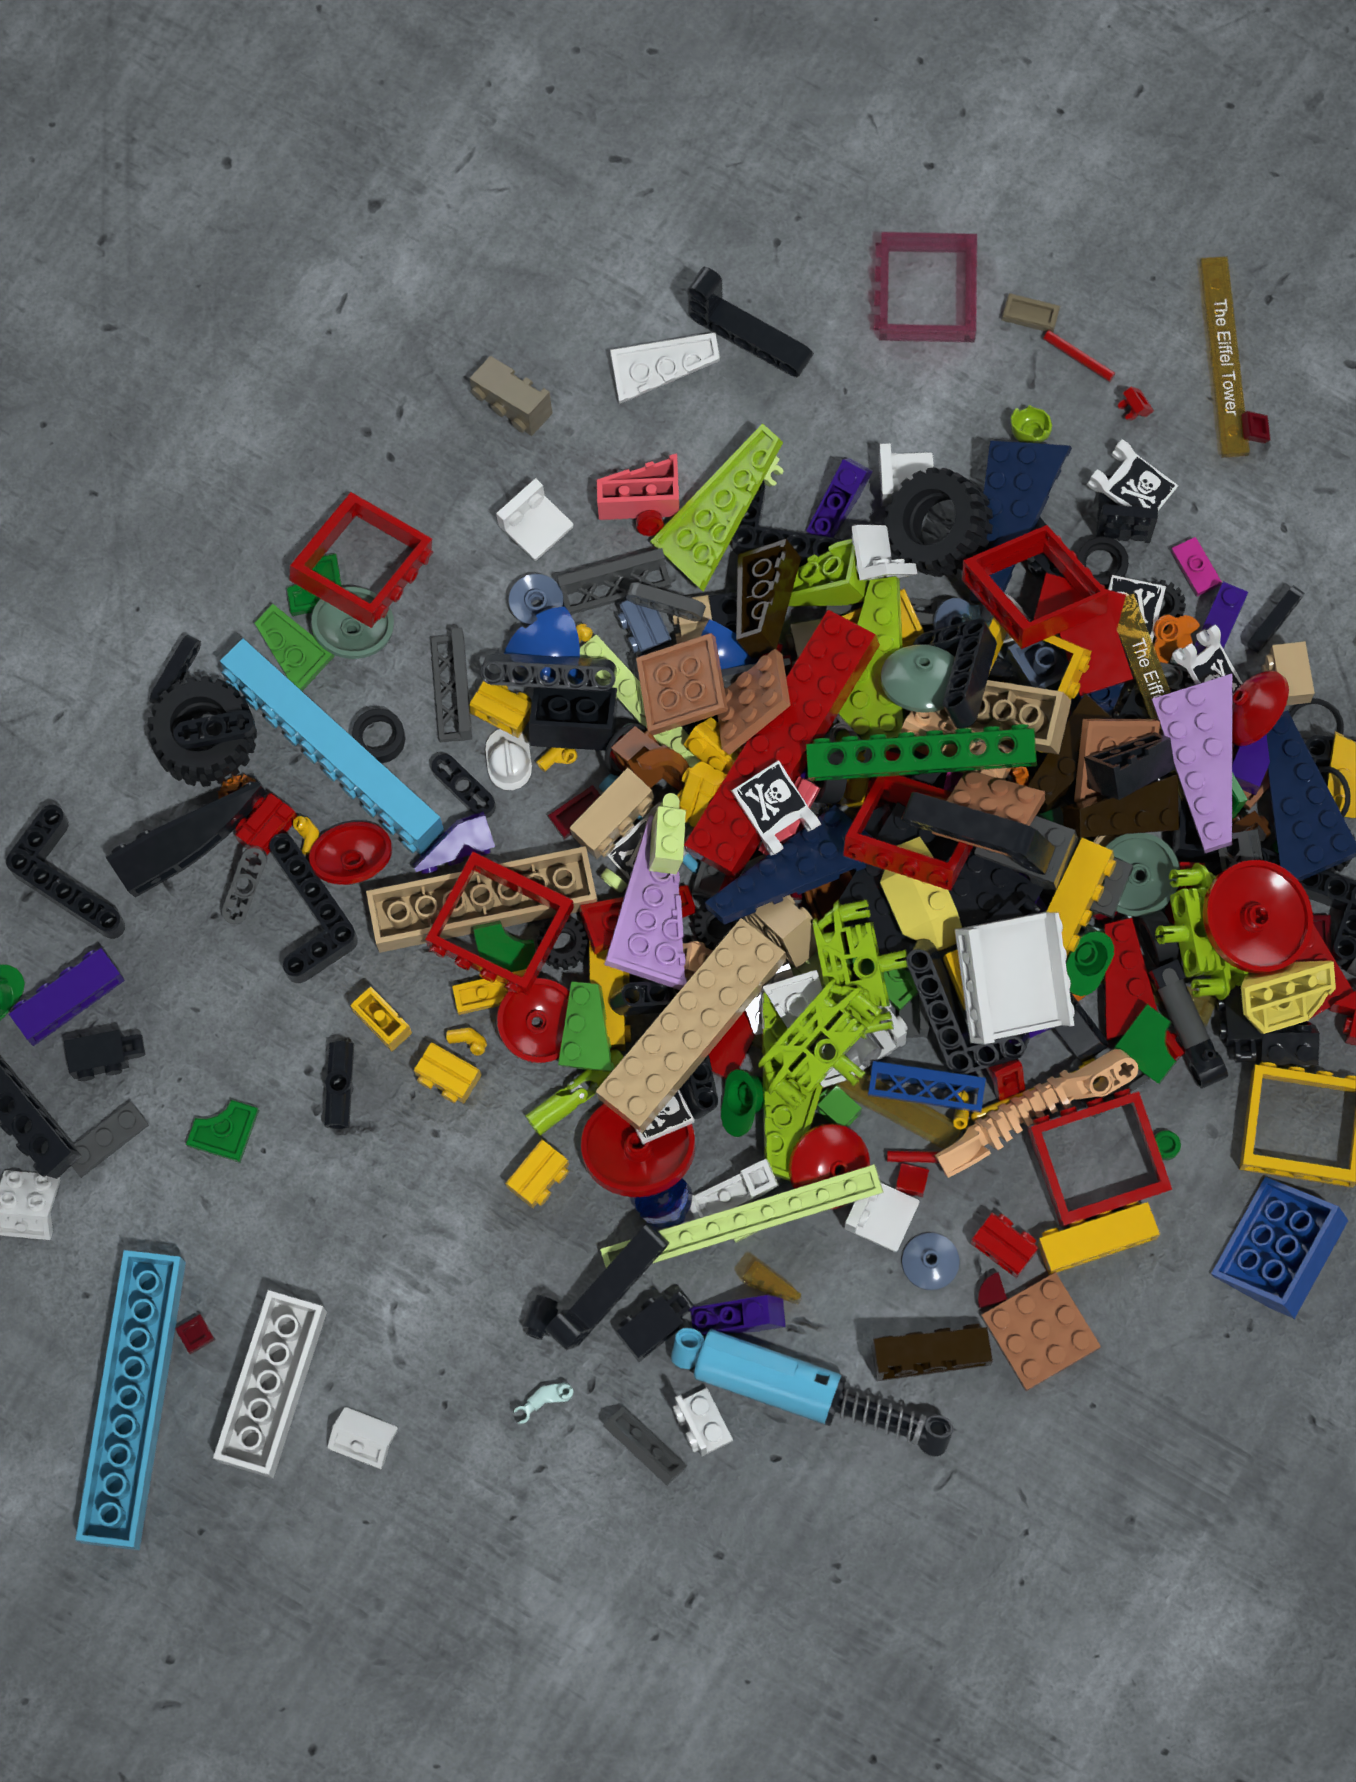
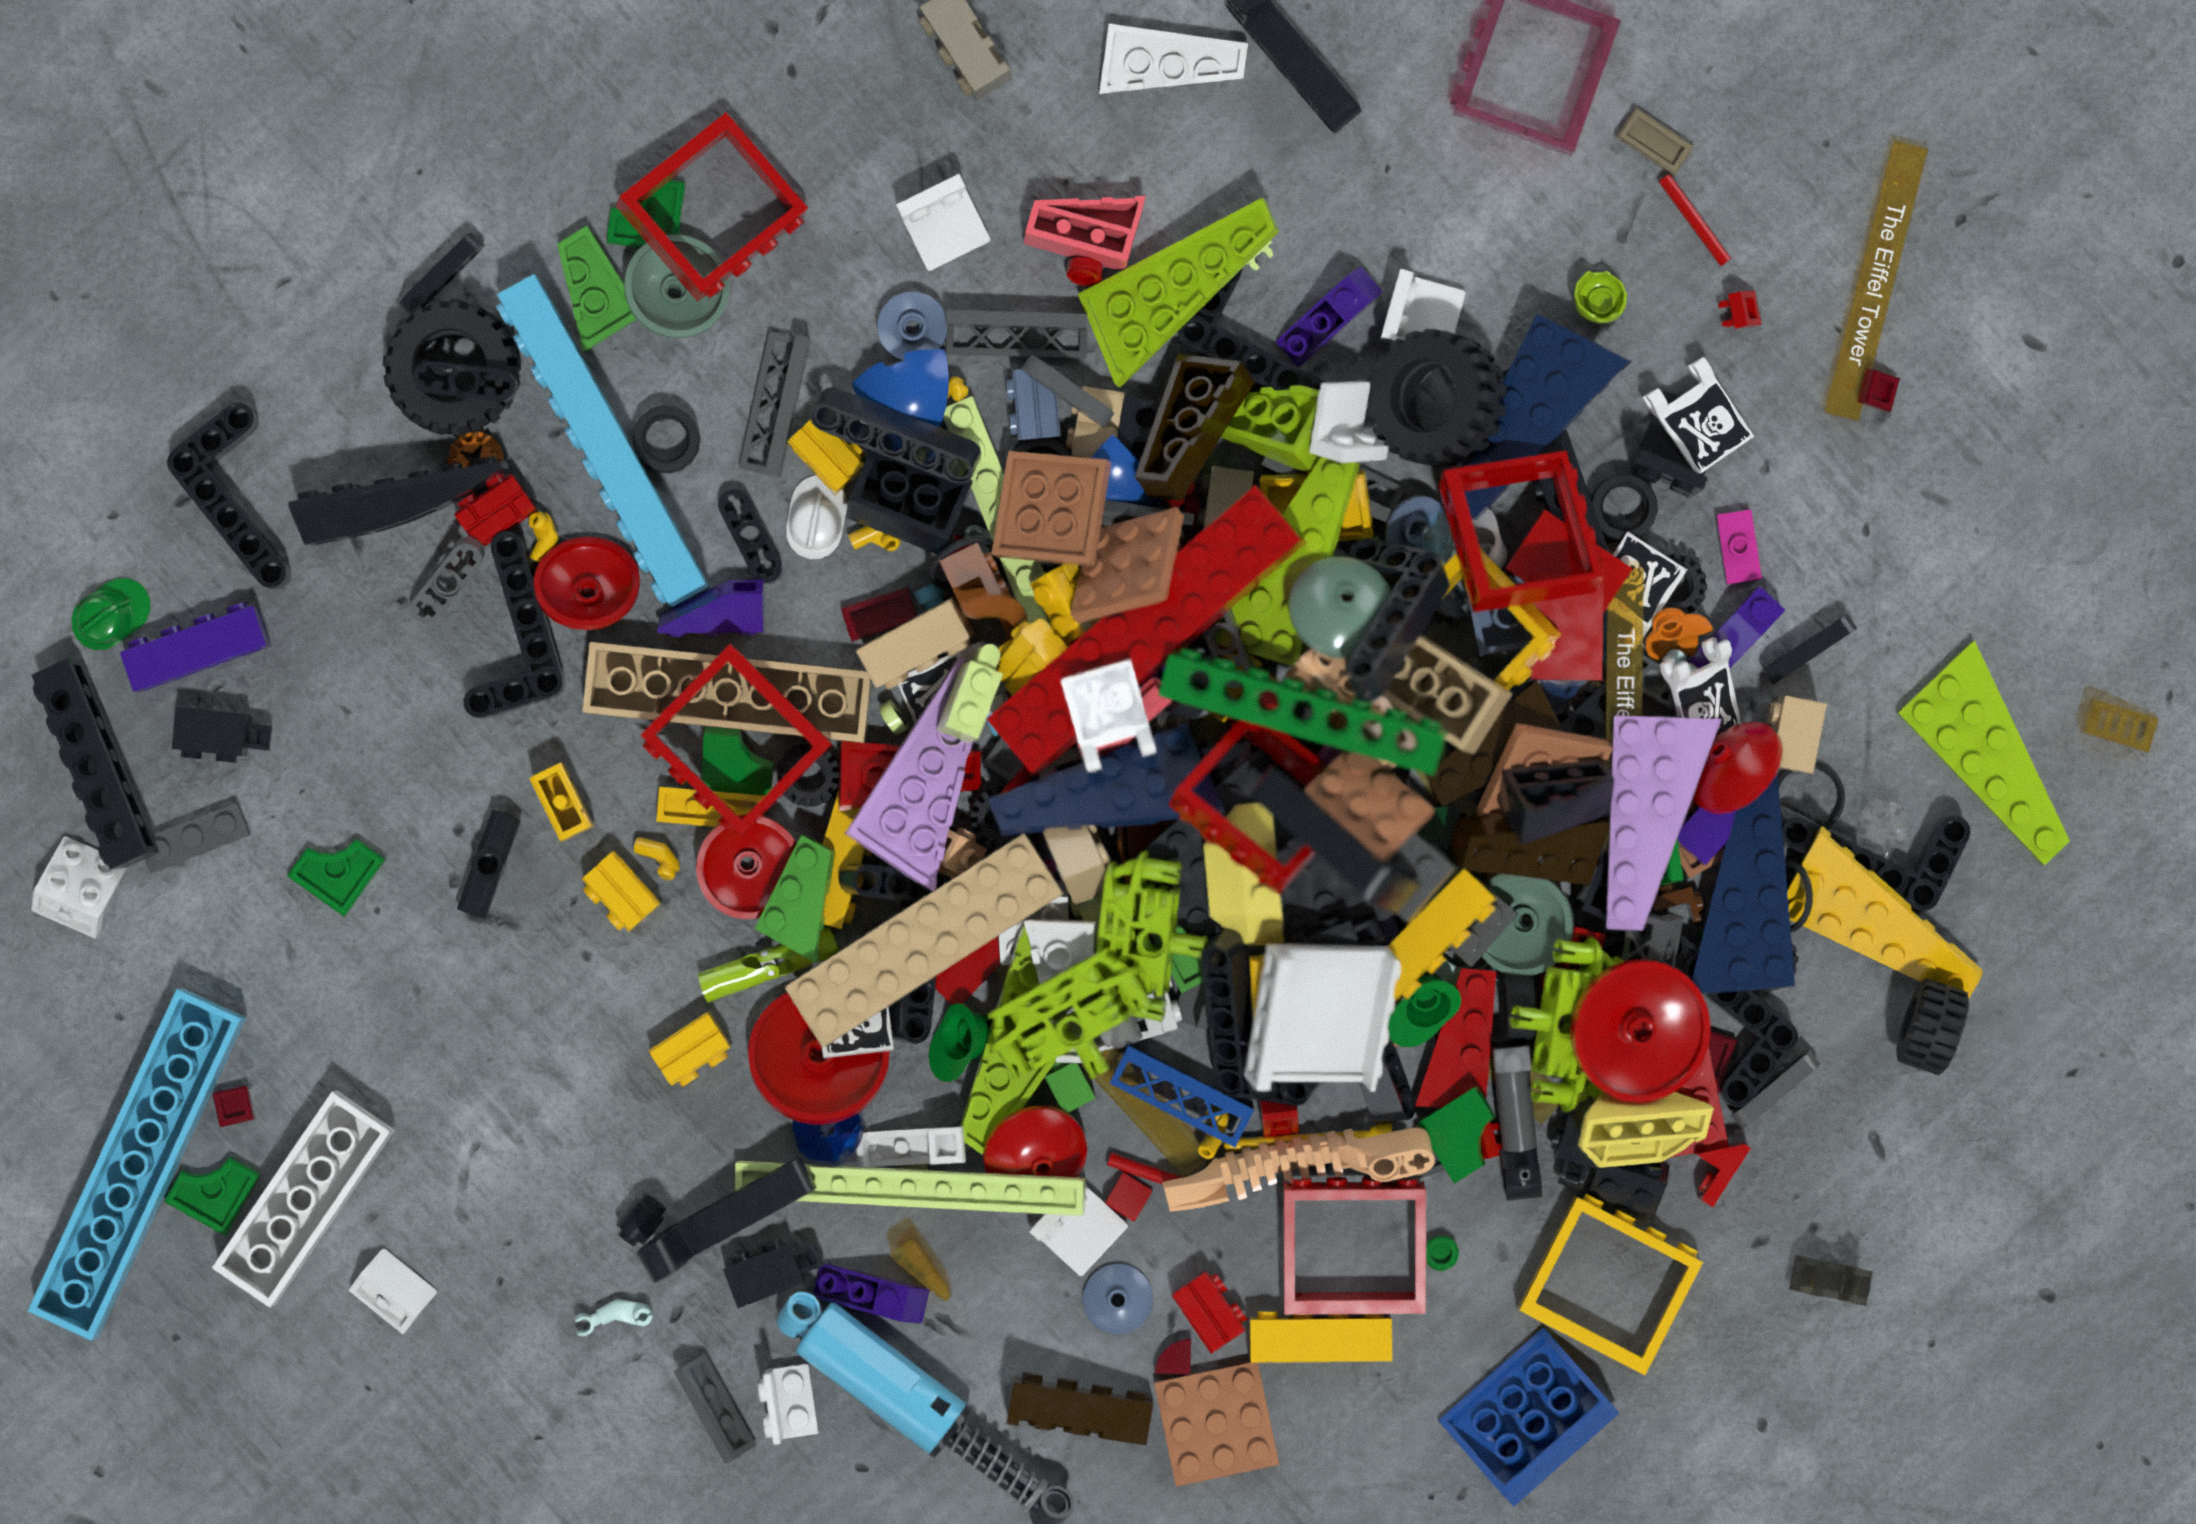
camera: 20 degrees right, 15 degrees up
(200, 1409) = (214, 1197): none -> green tile

